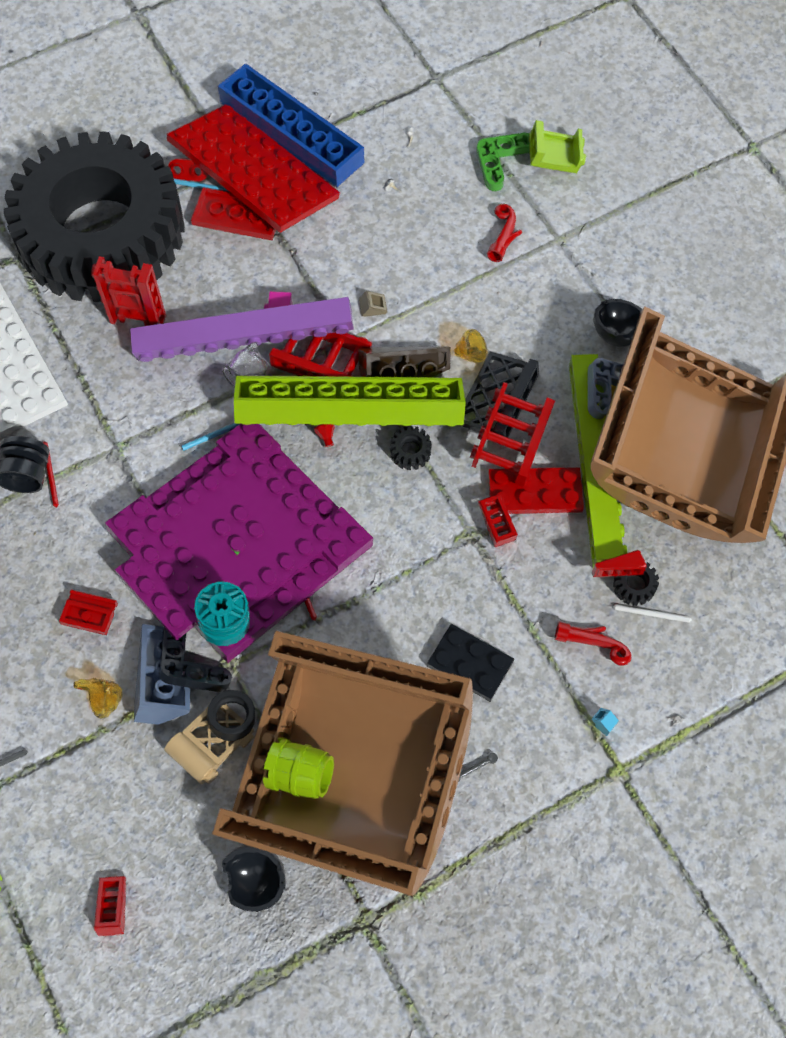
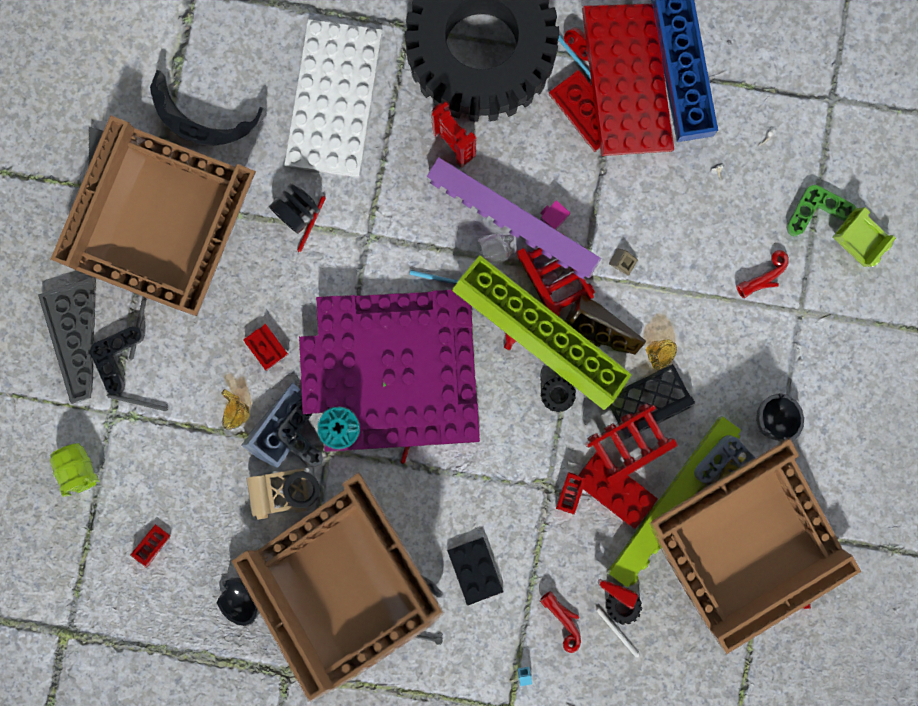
camera: 40 degrees right, 20 degrees up
(298, 769) = (311, 562): lime piece -> none

